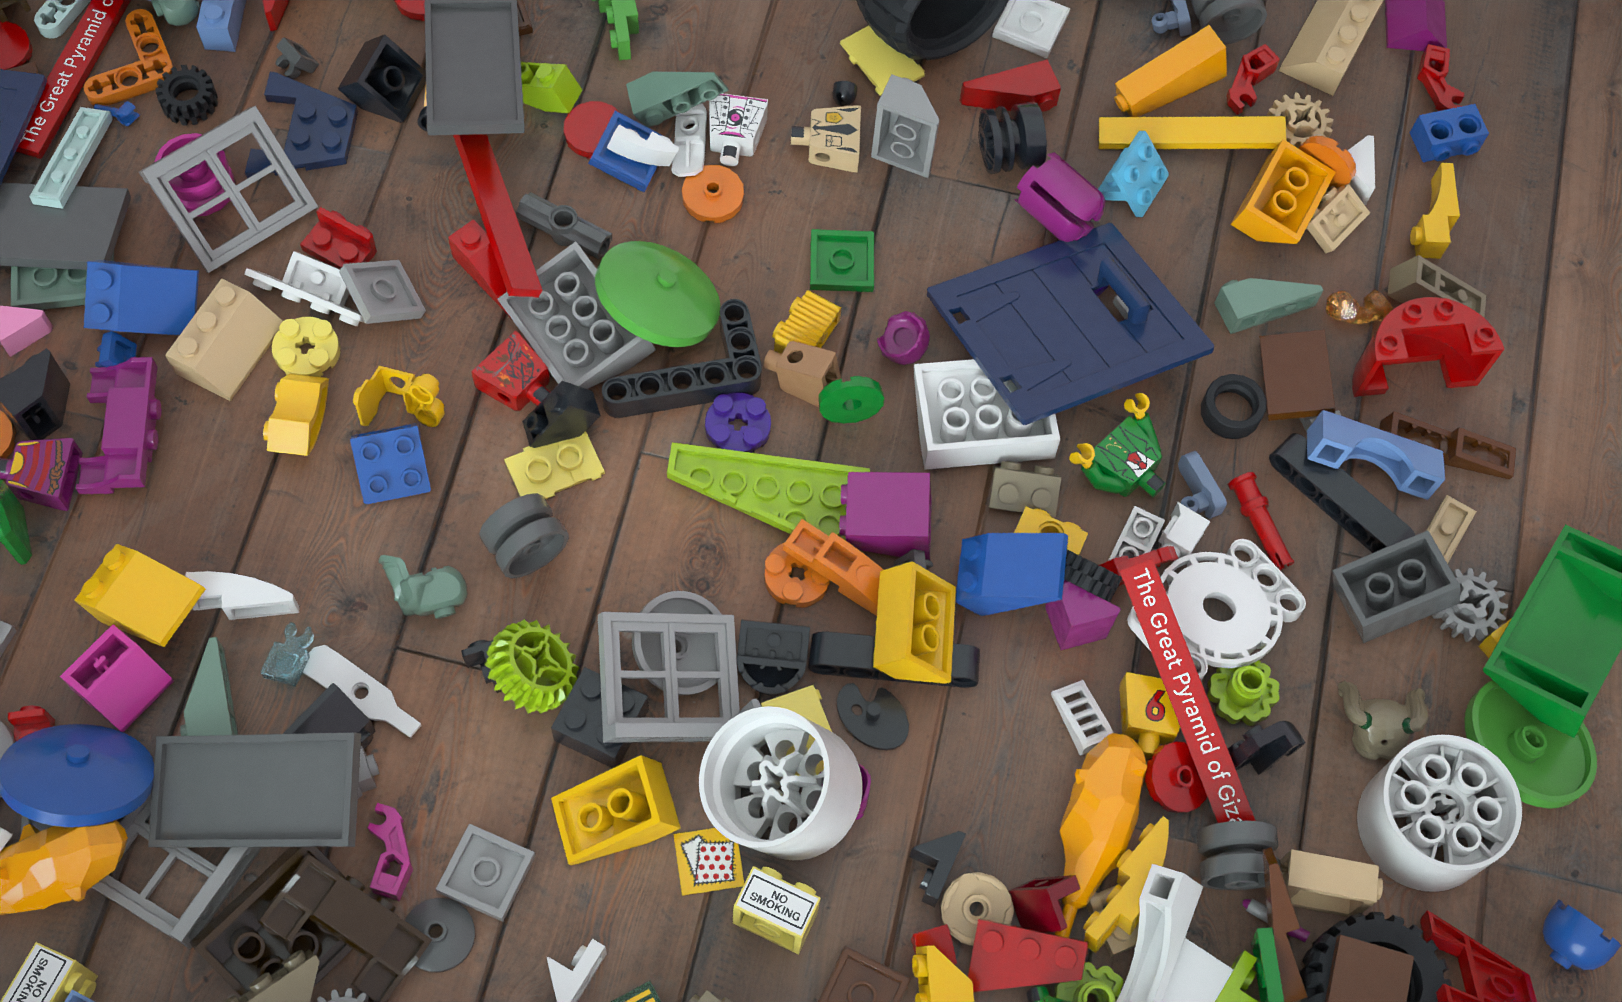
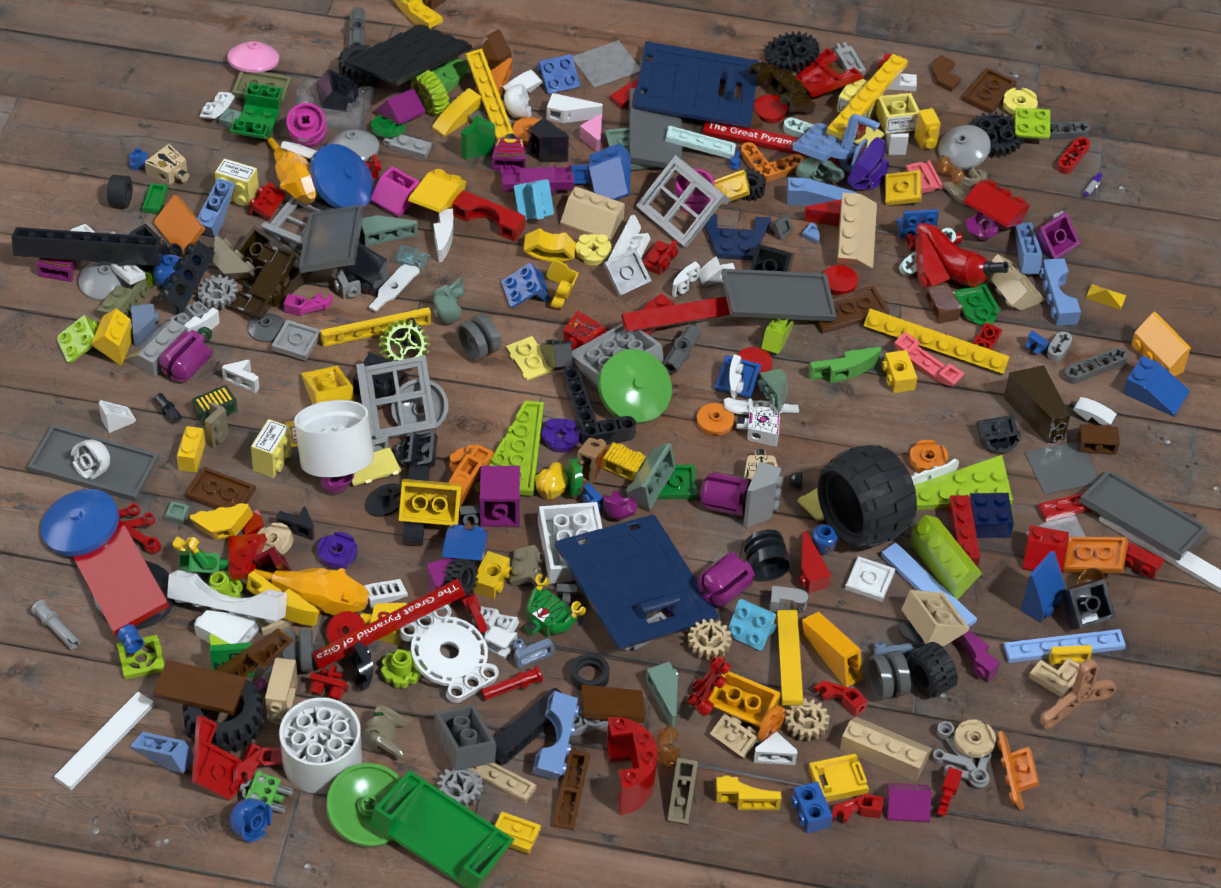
camera: 90 degrees right, 15 degrees down
(95, 937) = (267, 201): none -> red bracket
(183, 431) = (534, 199): none -> medium azure bracket
(197, 109) = (733, 185): none -> yellow plate
(225, 481) = (470, 206): none -> red arch
(311, 21) = (811, 233): none -> medium blue tile
(389, 163) = (711, 272): none -> white slope
(403, 210) = (682, 281): none -> white slope
(469, 724) = (371, 327): none -> yellow tile
(847, 439) = (552, 481): none -> yellow hair
(853, 283) = (652, 476): none -> sand green slope
(885, 179) = (725, 493): none -> magenta cylinder
(893, 376) = (591, 495): none -> blue bracket
(970, 62) = (825, 538): none -> blue head
(976, 803) = (337, 559): none -> dark purple plate
(1078, 138) = (788, 599): none -> light grey leg
(1079, 429) = (567, 592): none -> dark grey tile
(1161, 235) = (699, 639): none -> tan gear
(1259, 232) = (704, 705): none -> red plant
(1283, 803) = (337, 686): none -> red hips
(1385, 96) = (842, 775): none -> yellow container
(1454, 915) = (248, 765): none -> red piece
(1513, 916) = (266, 789): none -> bright green piece
(1537, 526) = (521, 830): none -> yellow plate

